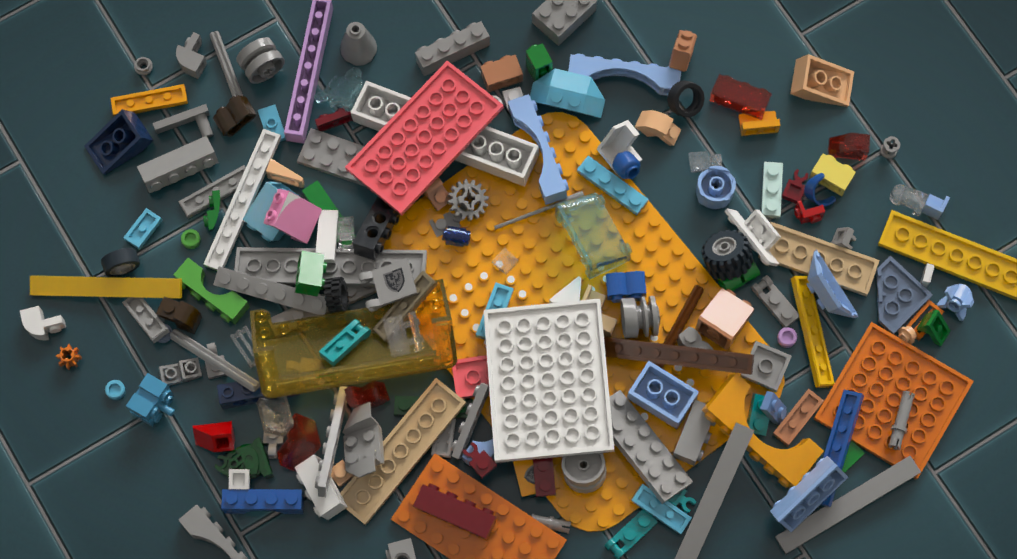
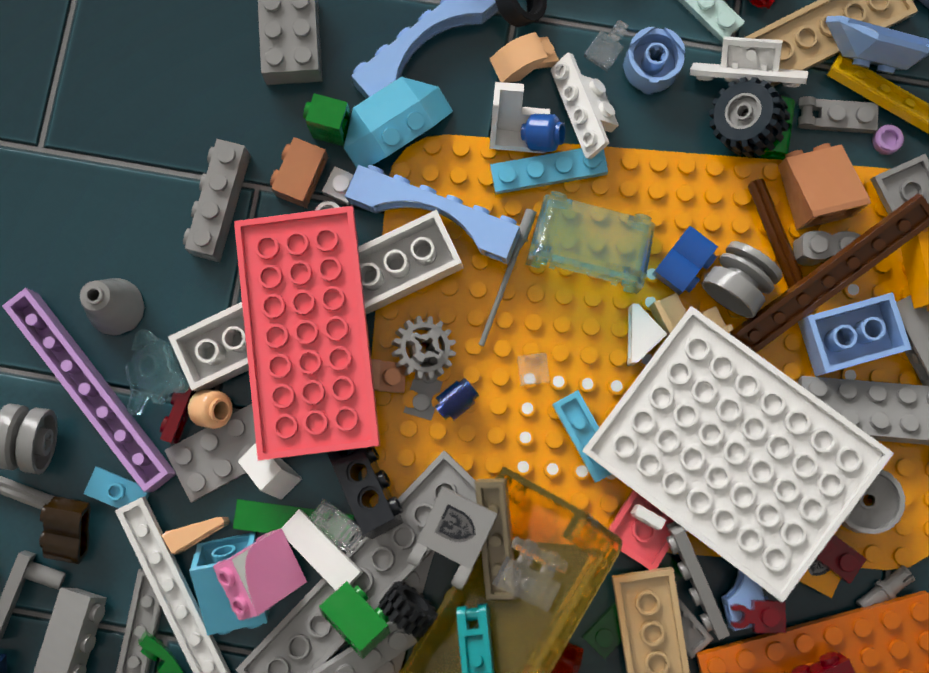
camera: 50 degrees left, 10 degrees up
(343, 184) = (270, 475): none -> white slope
(349, 130) = (210, 409): none -> light nougat head
(479, 368) = (647, 517): none -> white tile
(661, 175) = (585, 105): none -> white bracket

